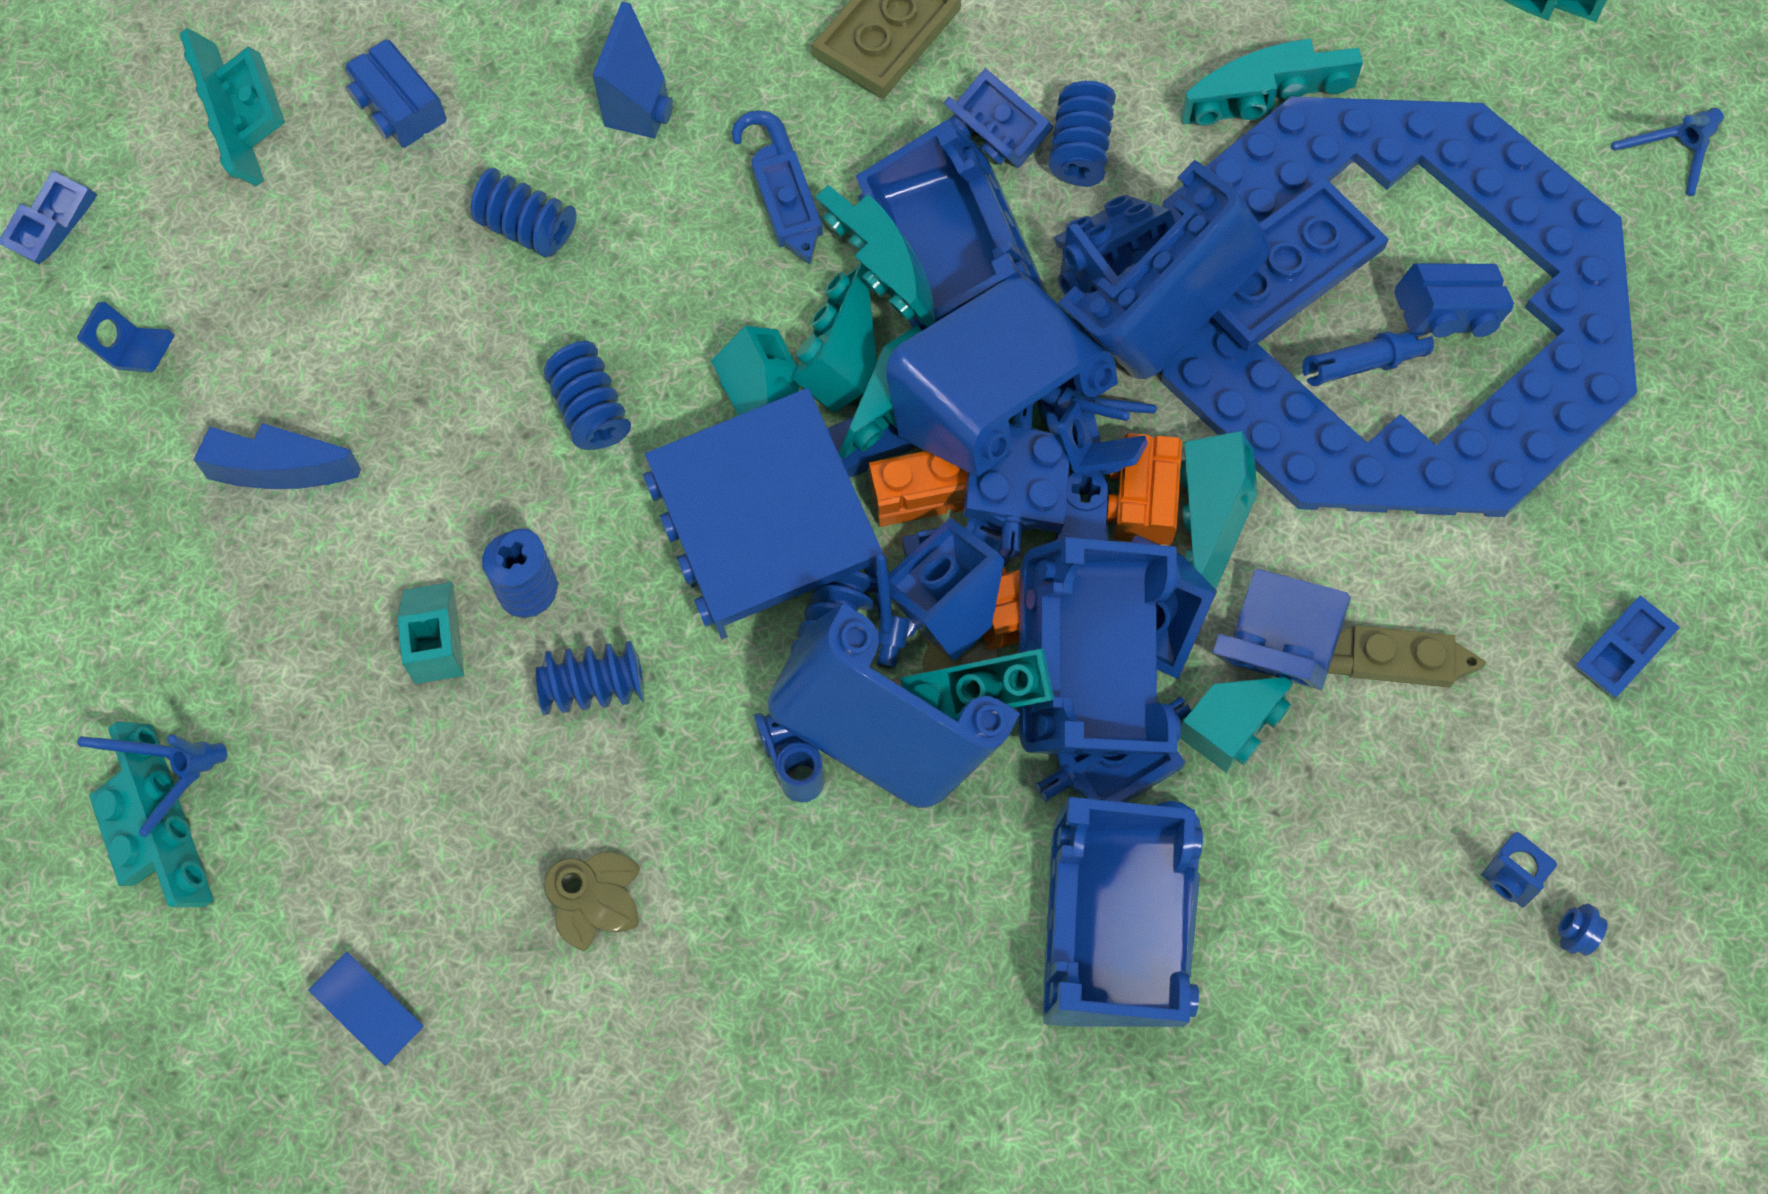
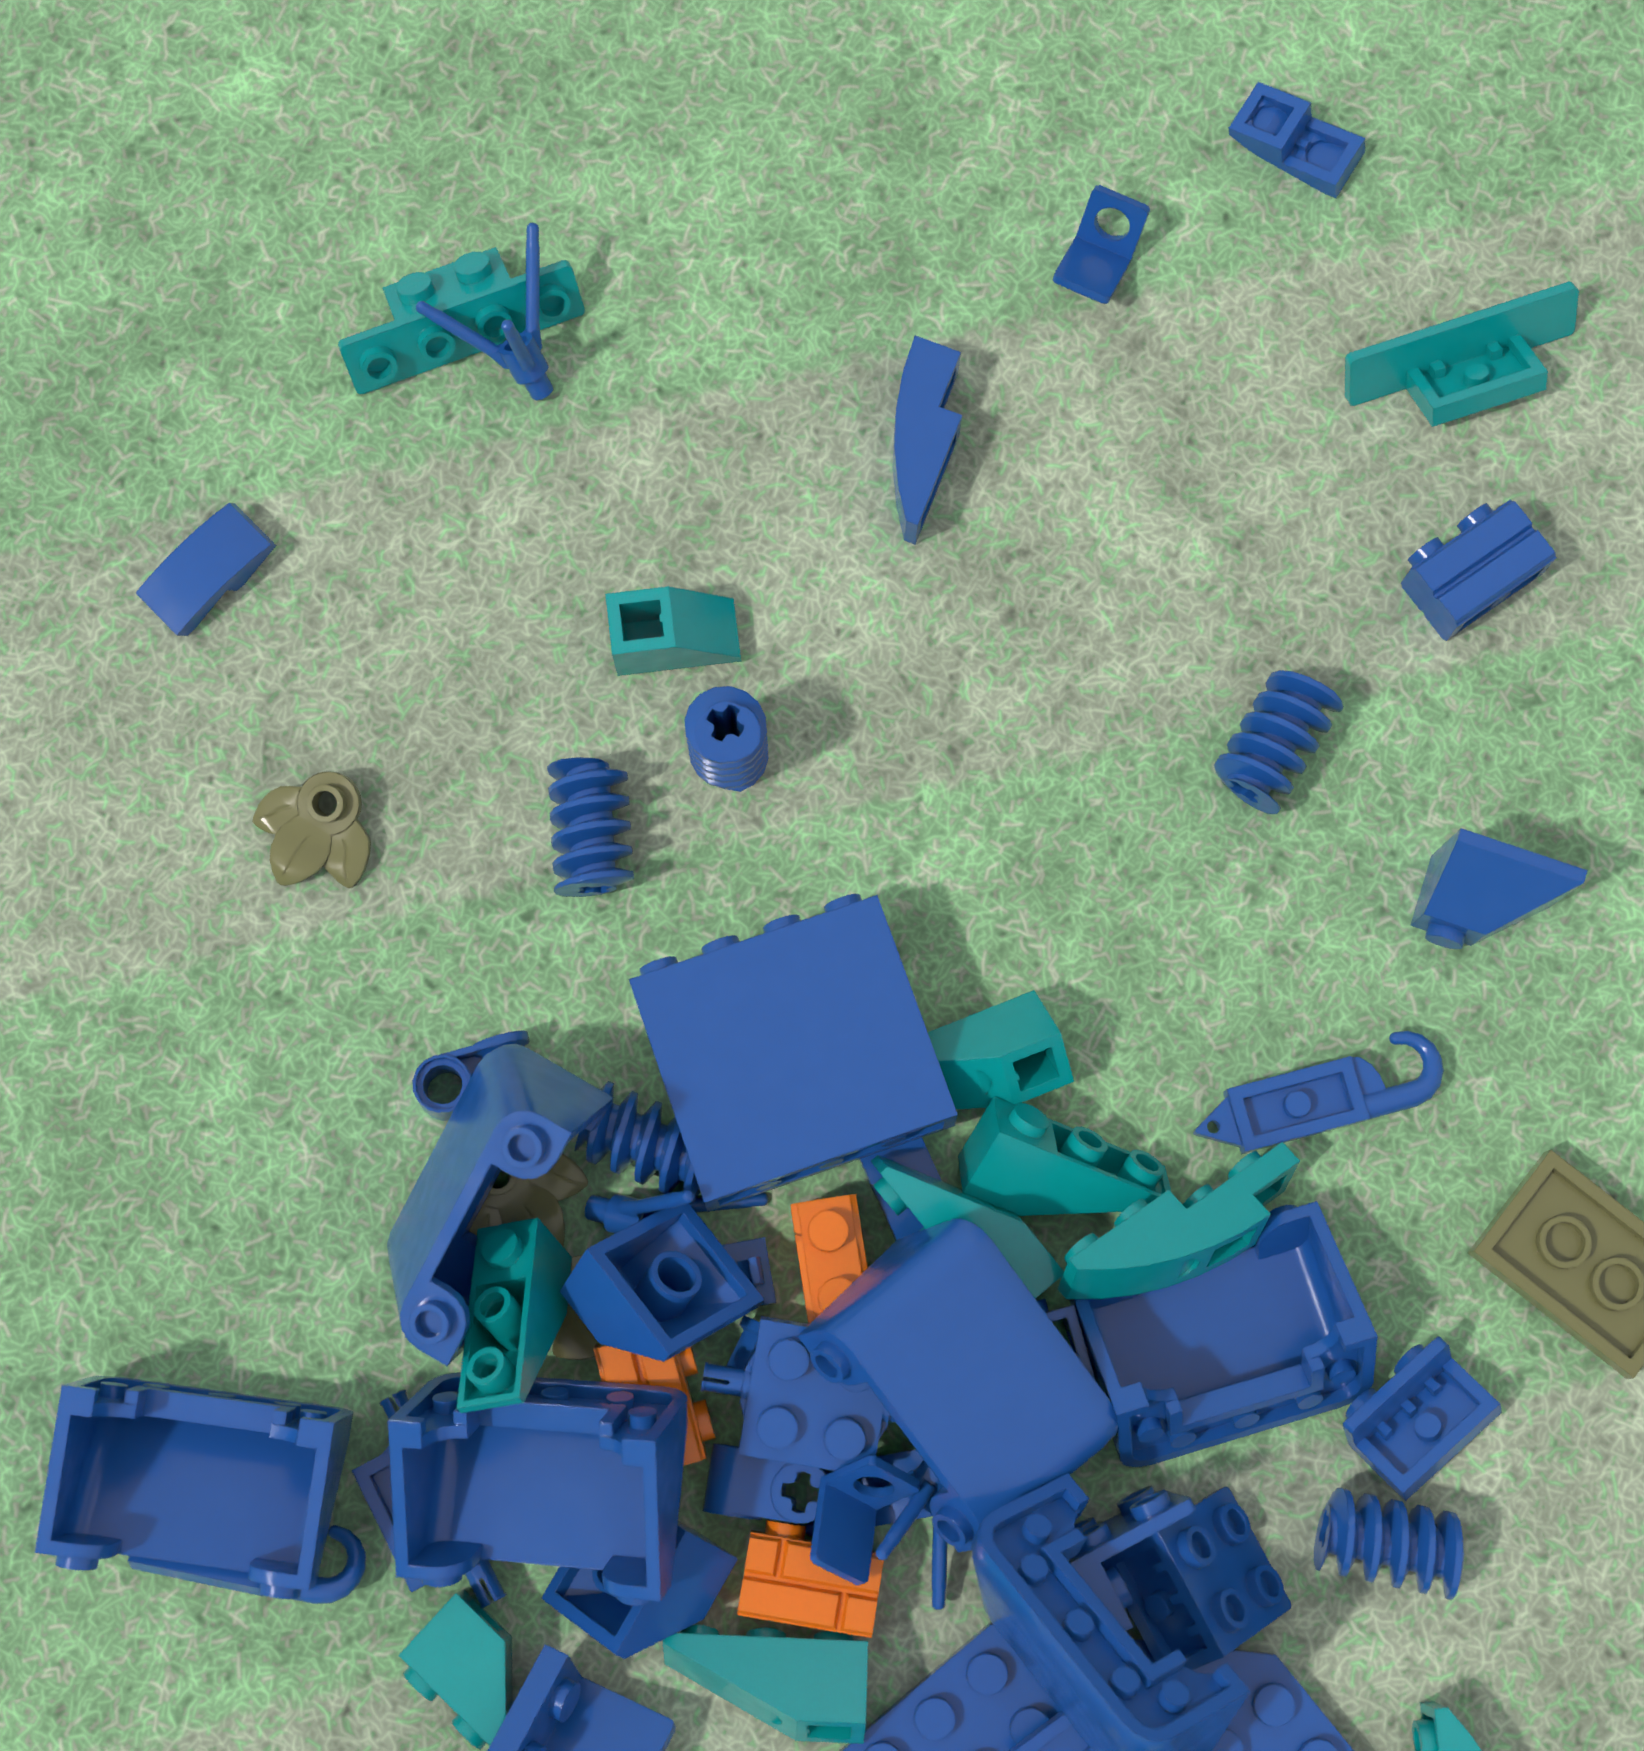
camera: 90 degrees right, 10 degrees up
(586, 396) = (990, 822): blue piece -> none

